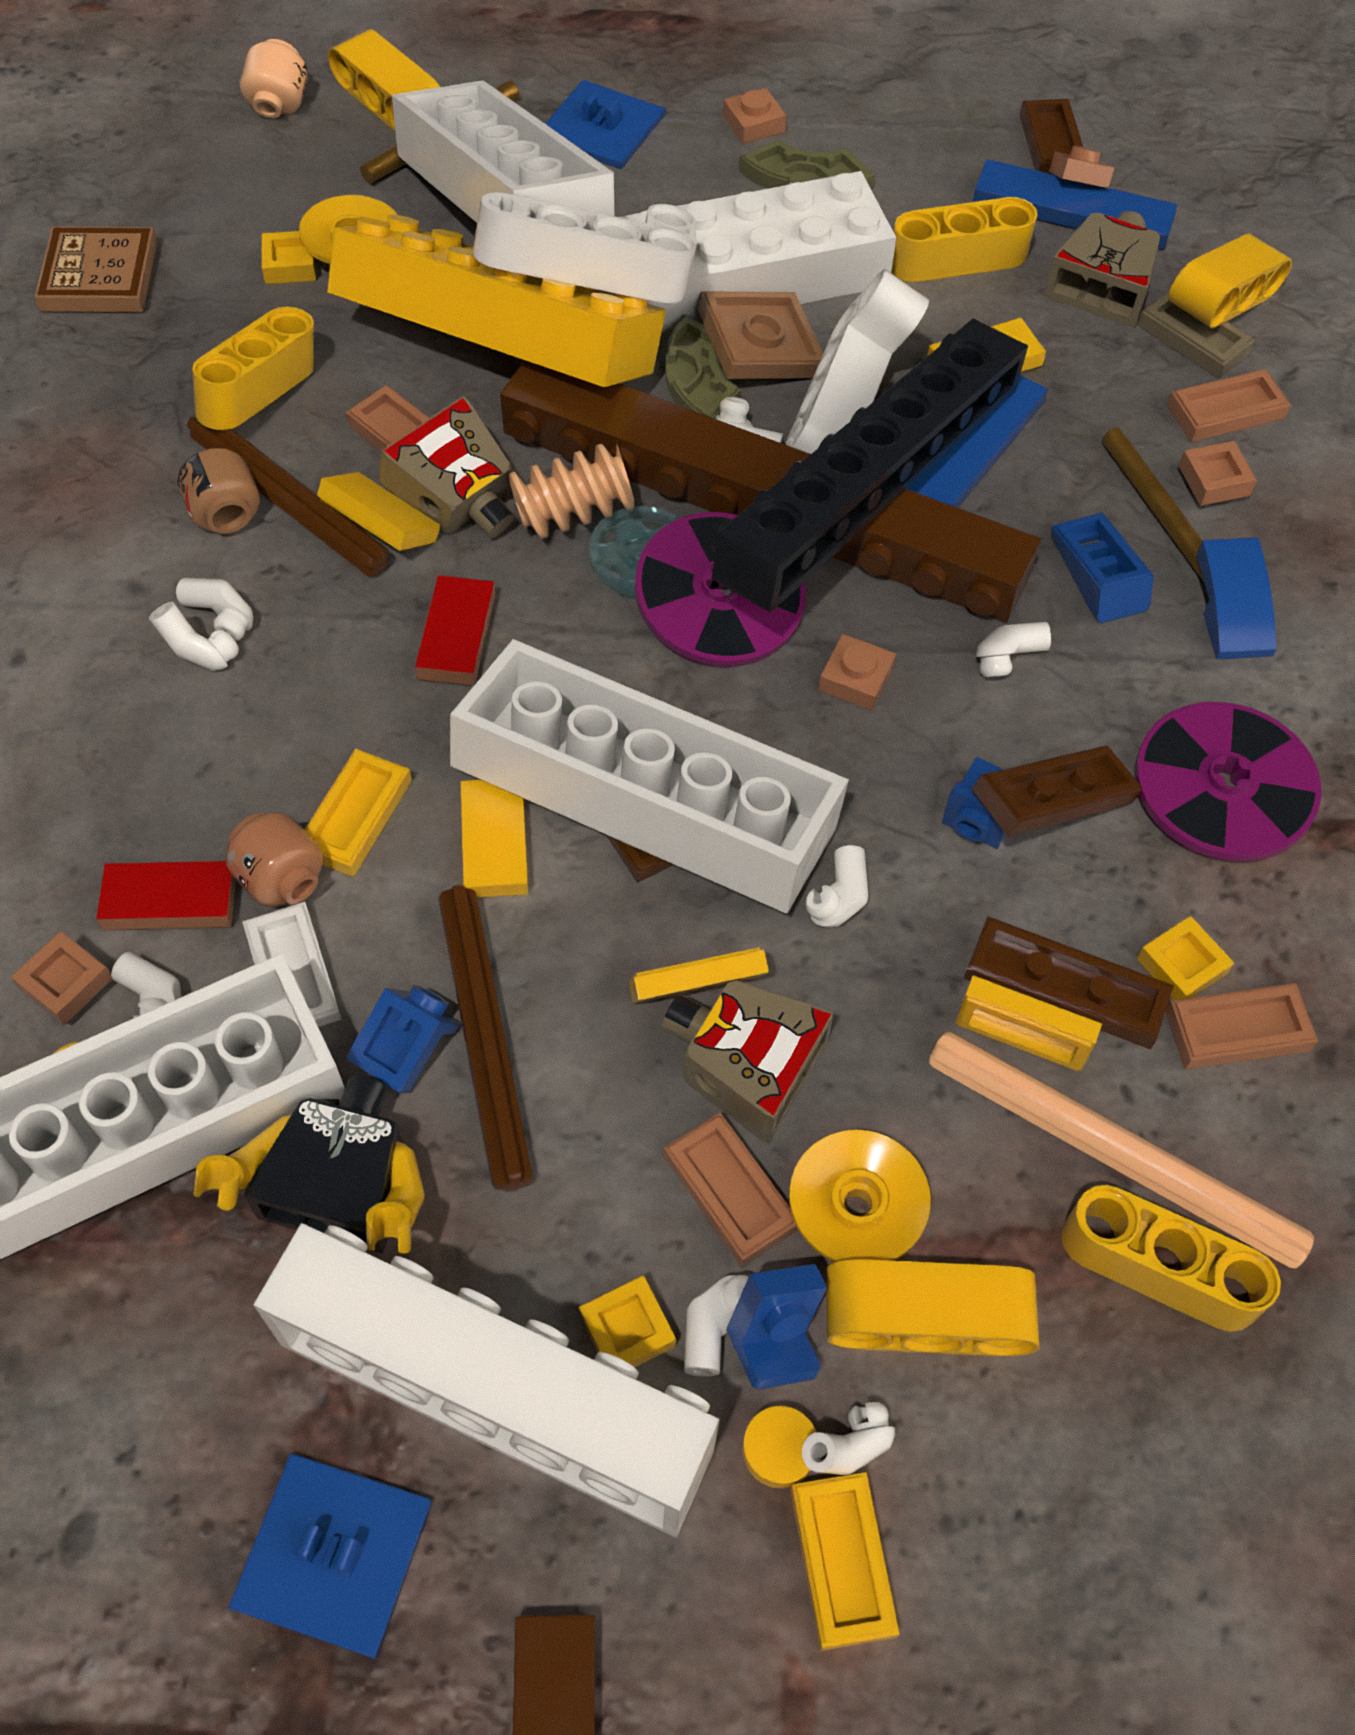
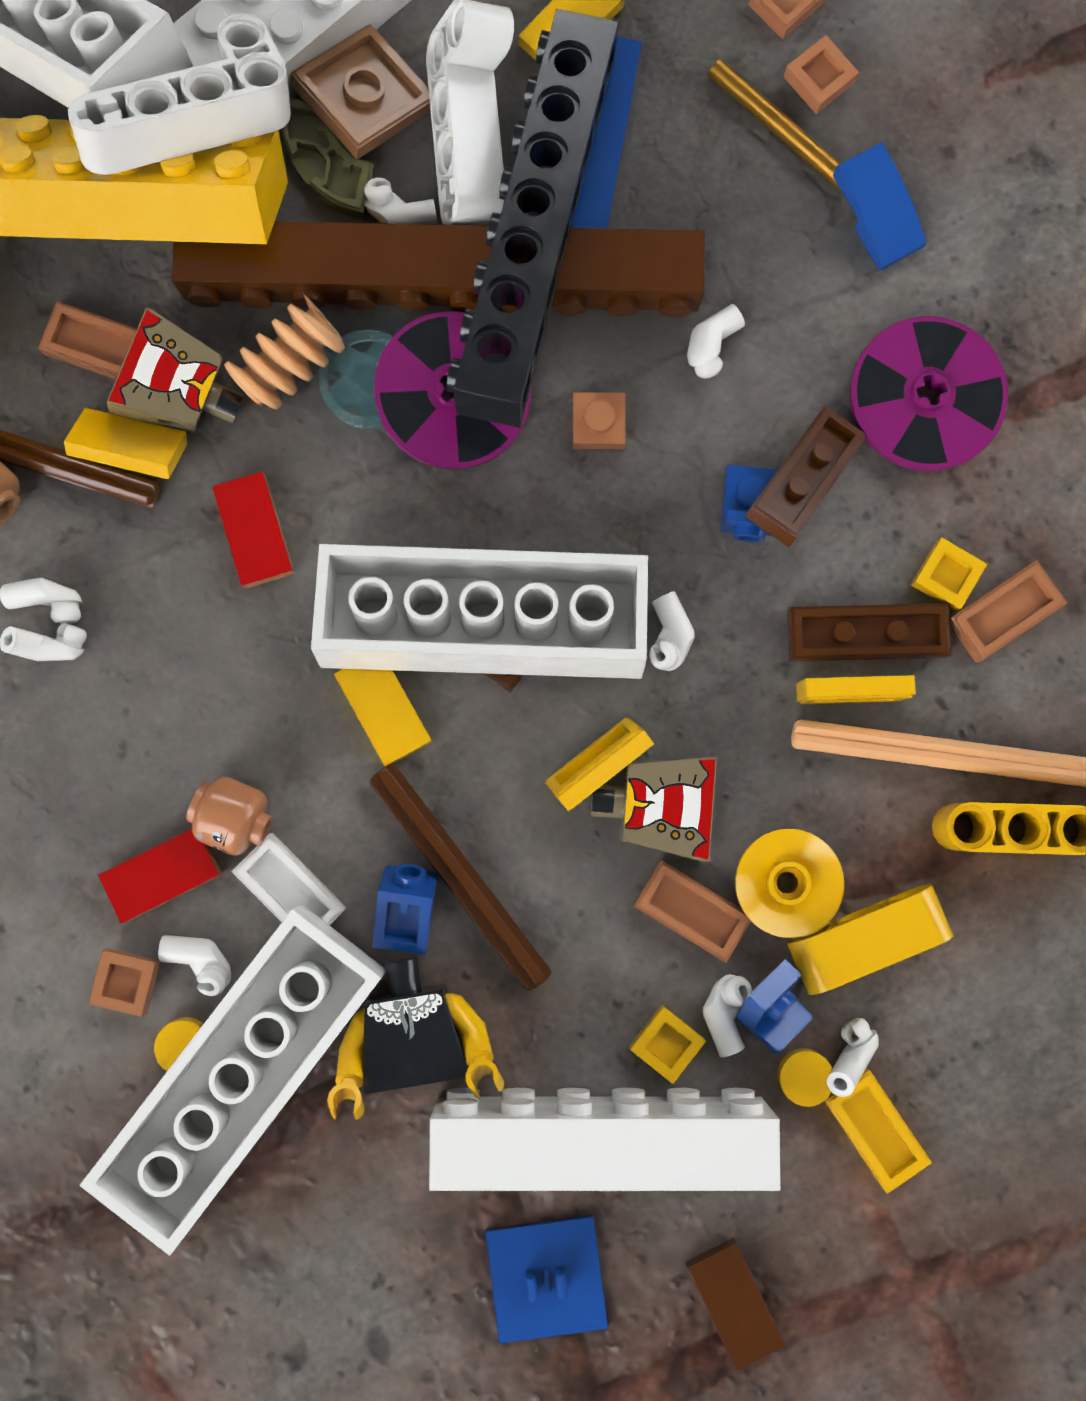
camera: 25 degrees left, 25 degrees up
(357, 810) = (263, 734): yellow tile -> none
(1107, 571) = (777, 242): blue slope -> none

